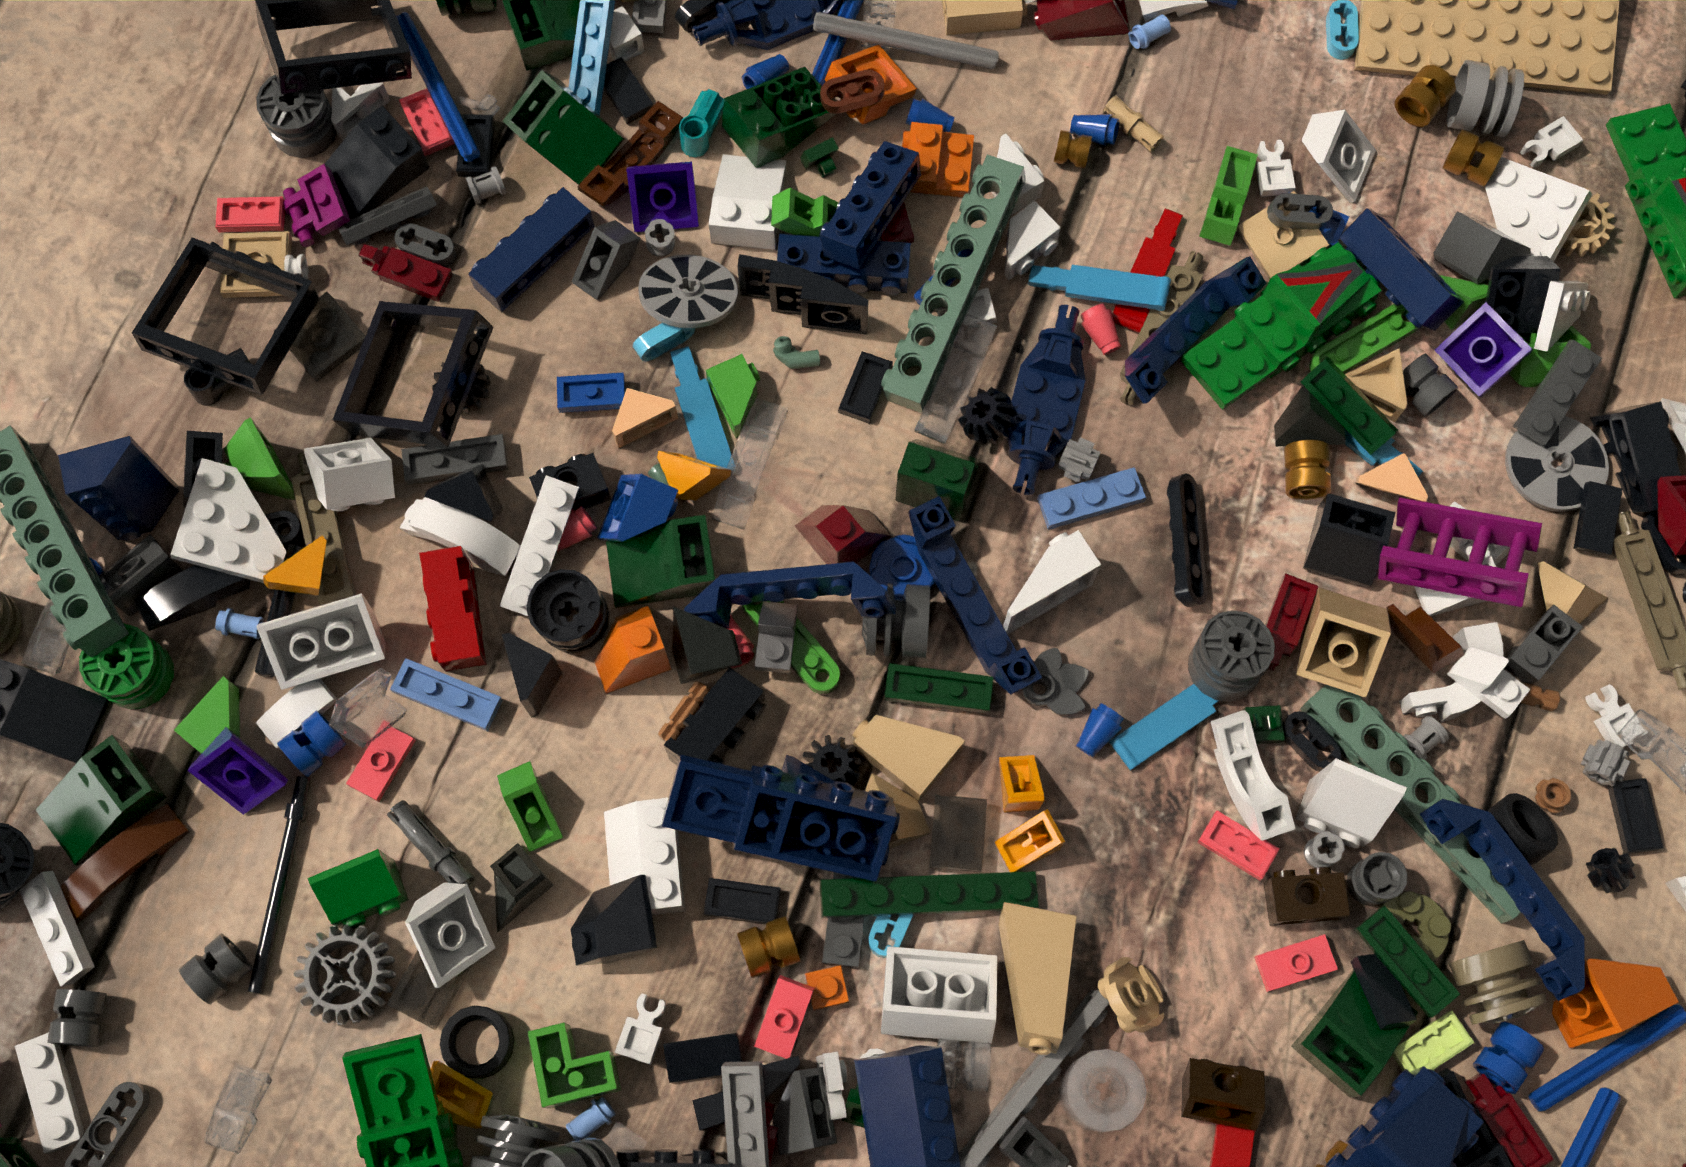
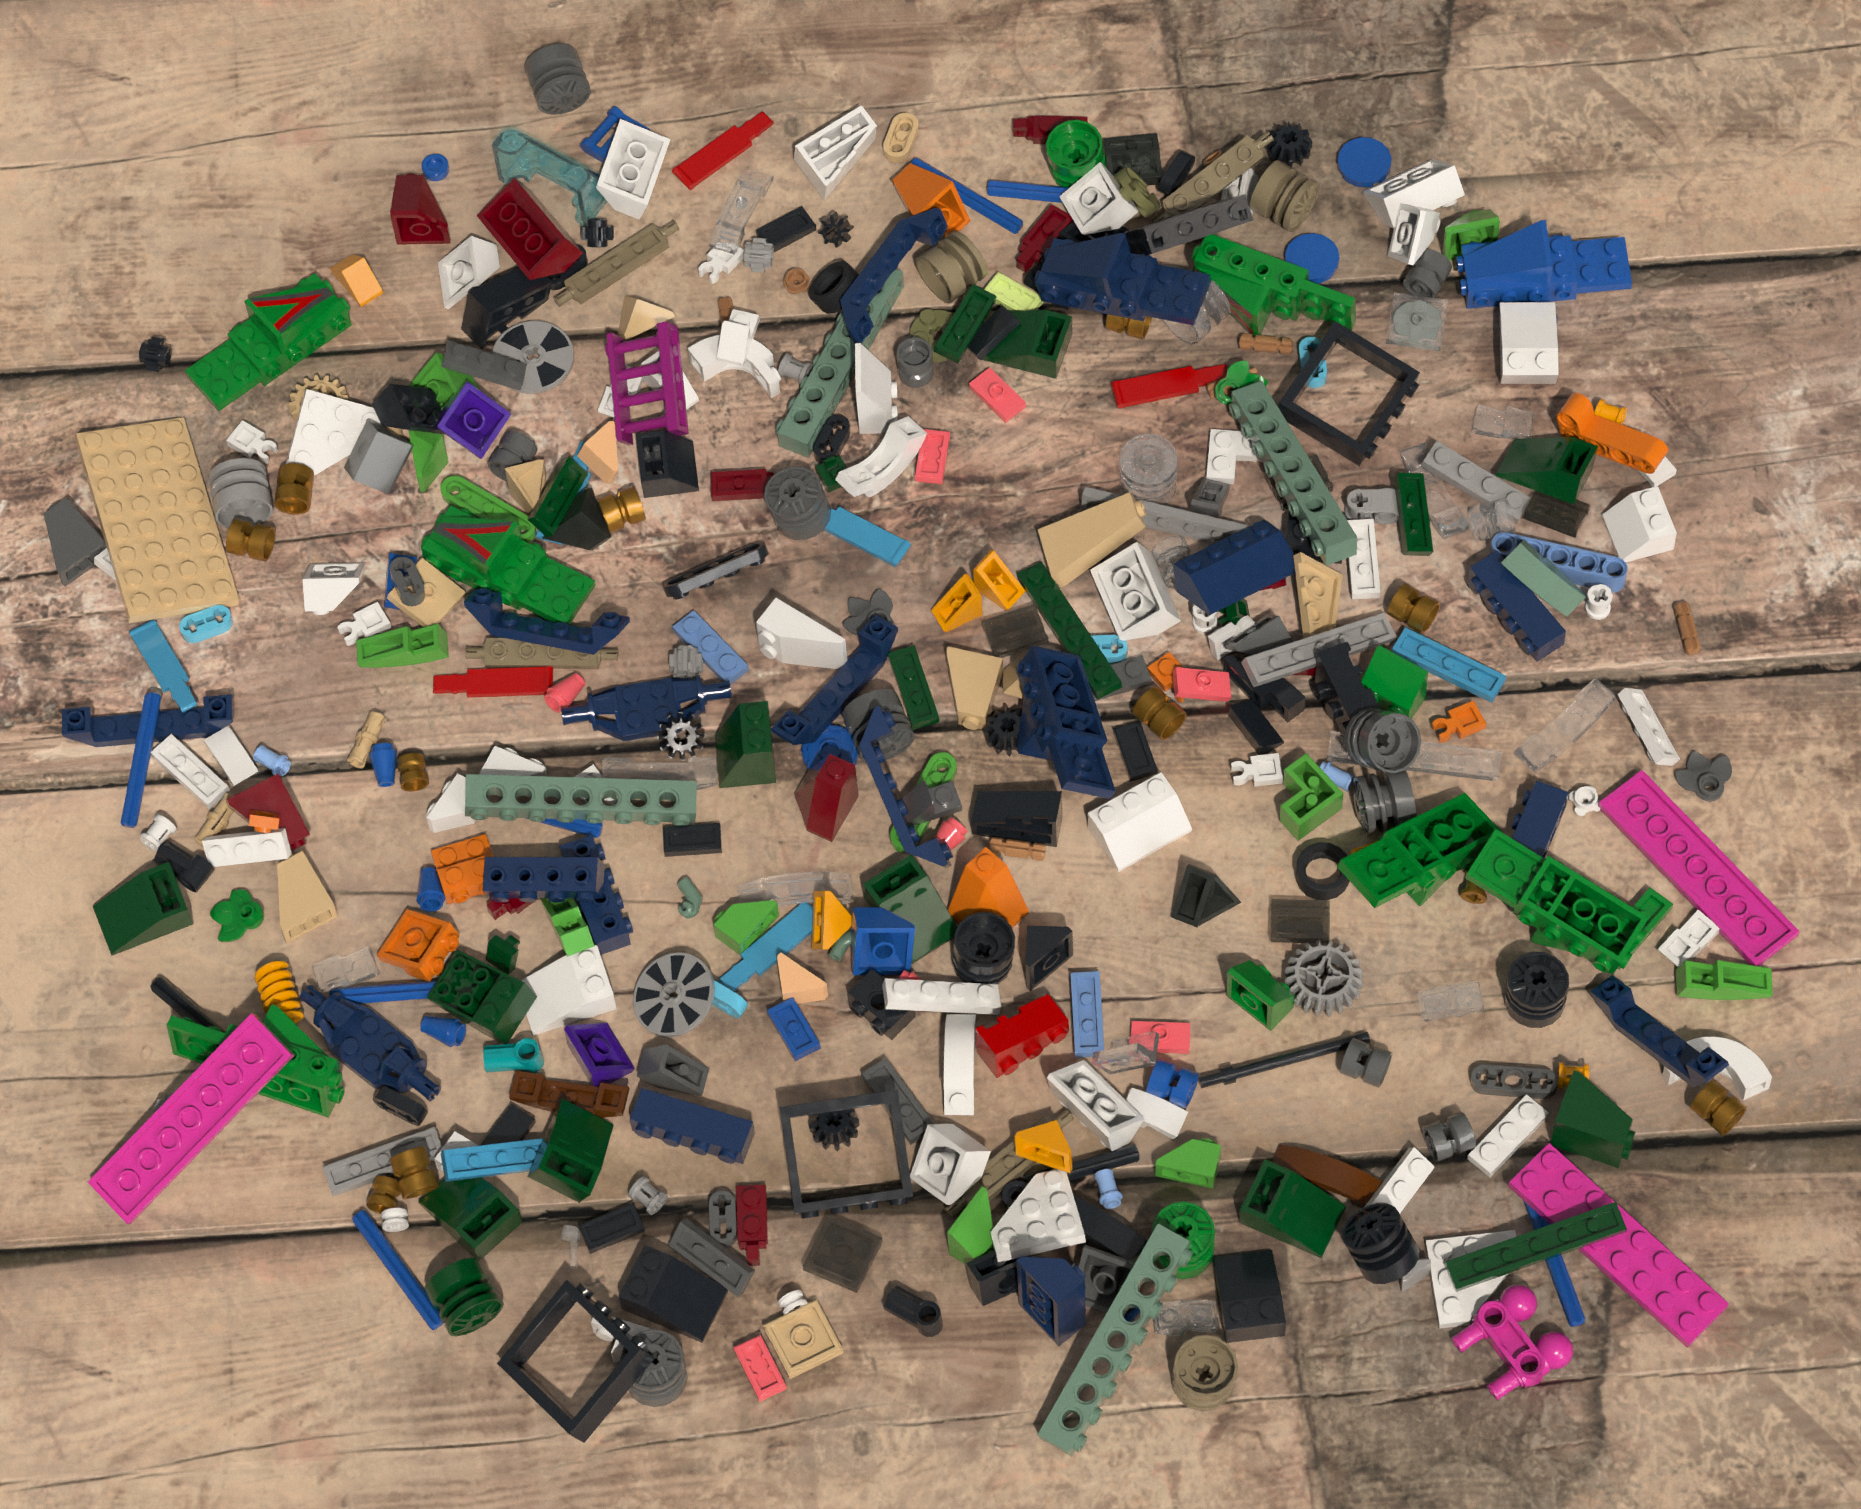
camera: 110 degrees left, 10 degrees down
(198, 254) = (855, 1262): black window -> none
(237, 772) = (1219, 1116): dark purple slope -> none
(323, 202) = (723, 1309): magenta plate -> none
(426, 122) = (609, 1272): coral plate -> none
(438, 89) = (589, 1258): blue axle -> none
(440, 857) = (1208, 959): dark grey pin -> none
(448, 931) = (1255, 918): white slope -> none
(468, 492) = (926, 1063): black slope -> none
(529, 806) = (1139, 916): bright green slope -> none
(614, 924) = (1194, 813): black slope -> none
(664, 248) = (635, 1037): light grey bush -> none
(701, 646) = (964, 841): pearl dark grey slope -> none
(801, 292) = (643, 901): black slope -> none
(850, 89) = (448, 935): copper plate -> none
(905, 40) = (366, 934): light grey axle -> none
(1099, 729) = (891, 572): blue cone -> none
(1104, 285) = (526, 702): dark azure piece -> none
(1132, 995) = (1072, 479): tan plate -> none
(1223, 1094) = (1111, 401): dark brown brick -> none
(1324, 839) = (909, 400): light grey bush -> none
(1328, 893) = (947, 387): dark brown brick -> none
(1343, 642) = (750, 434): tan slope -> none
(1401, 271) = (426, 498): dark blue brick -> none
(1424, 637) = (721, 389): reddish brown panel -> none
(1508, 1057) = (989, 245): blue wheel -> none
(1542, 645) = (693, 317): dark grey slope -> none
(1560, 311) = (416, 377): white wing -> none
(1597, 518) = (568, 316): black tile -> none

